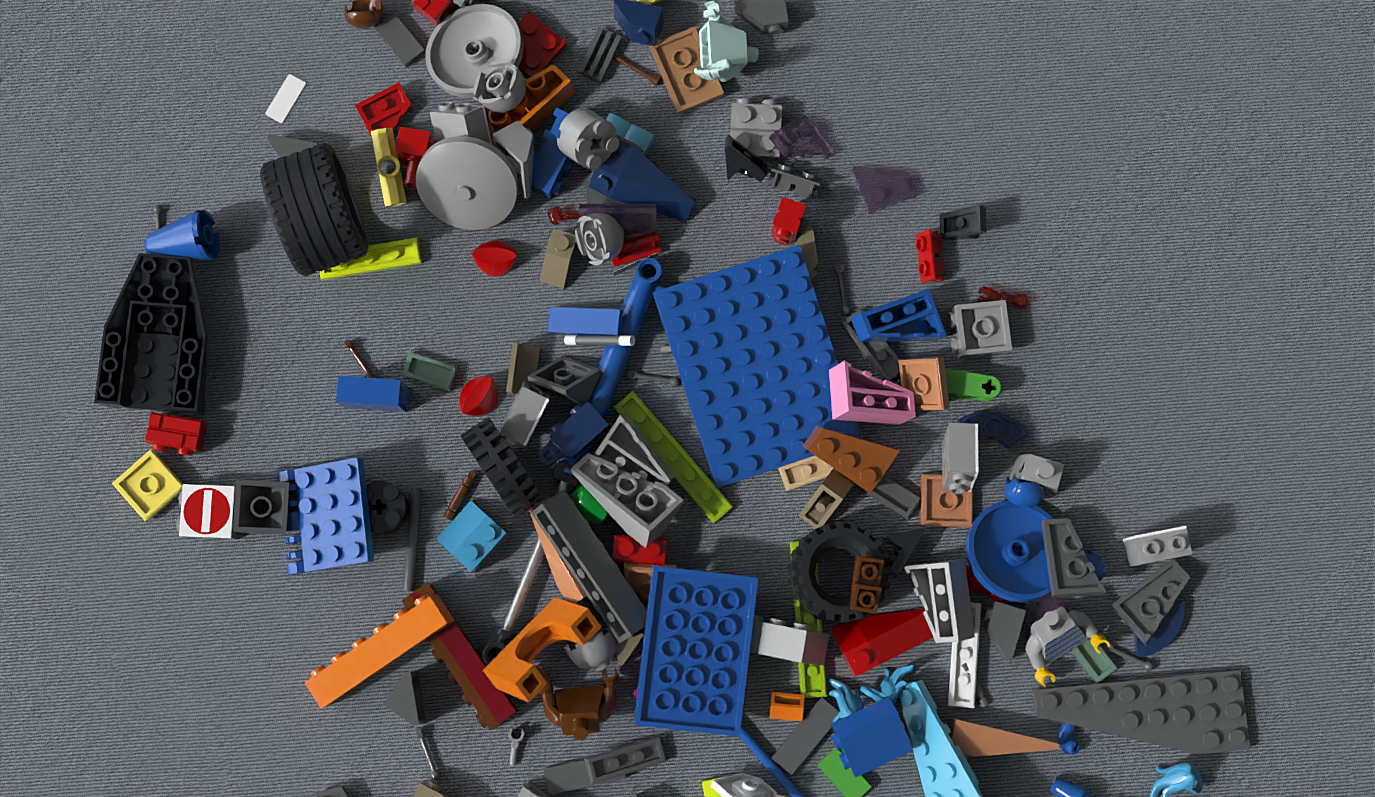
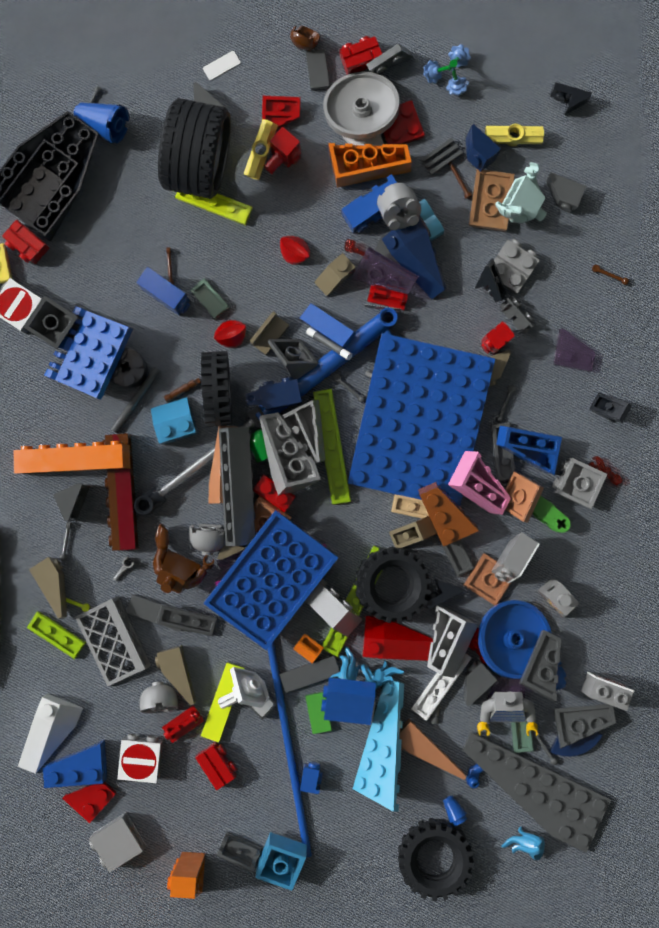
camera: 30 degrees right, 5 degrees up
(460, 120) = (320, 154): light grey piece -> none
(467, 183) = (304, 189): light grey dish -> none
(500, 86) = (363, 138): light grey cylinder -> none
(517, 145) = (346, 190): light grey slope -> none
(524, 414) = (252, 362): light grey piece -> none
(557, 621) = (192, 507): orange arch -> none
(599, 237) = (368, 276): light grey cylinder -> none
(801, 140) = (538, 290): clear purple wing -> none
(851, 77) = (596, 268): none -> reddish brown hinge
(865, 584) = (404, 603): reddish brown slope -> none
(930, 268) = (578, 408): red hinge -> none
(996, 426) = (550, 551): dark blue tile -> none
(1023, 494) = (541, 605): blue hair -> none

